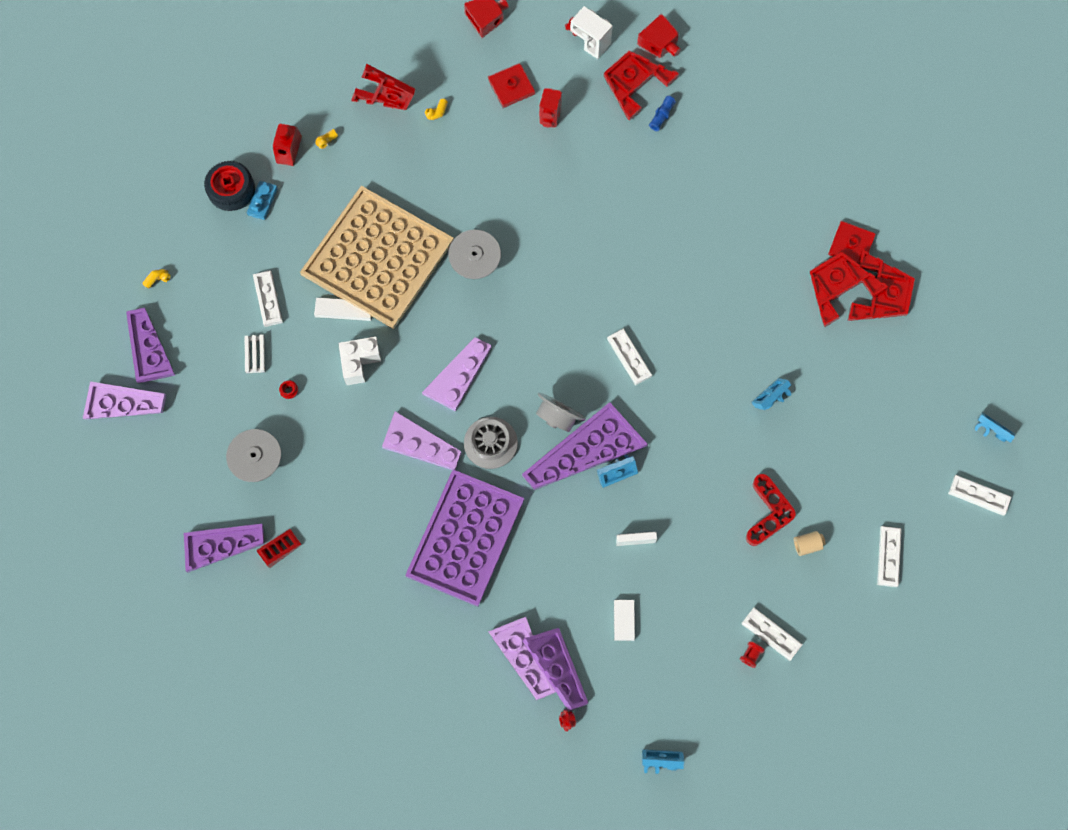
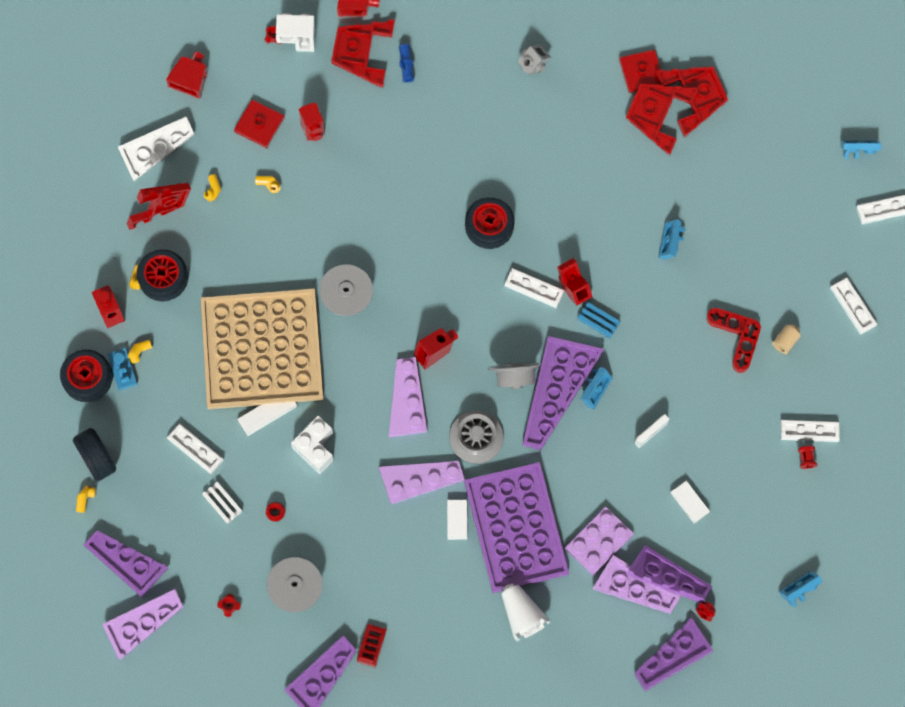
camera: 40 degrees left, 0 degrees up
(185, 247) = (94, 454): none -> black wheel
(192, 432) = (229, 599): none -> red plate
(285, 192) = (137, 349): none -> yellow arm
(345, 149) = (162, 275): none -> wheel
(414, 50) = (153, 147): none -> white wing
(414, 609) = (522, 612): none -> white cone
(424, 497) = (457, 519): none -> white tile
(484, 134) = (269, 181): none -> yellow arm
(511, 347) = (434, 347): none -> red torso
(514, 738) = (678, 653): none -> medium lavender wing
(524, 597) = (599, 541): none -> lavender plate
(642, 276) = (489, 223): none -> wheel
(657, 404) = (601, 313): none -> dark azure tile
(664, 373) = (573, 283): none -> red brick
(767, 175) = (534, 59): none -> light grey brick

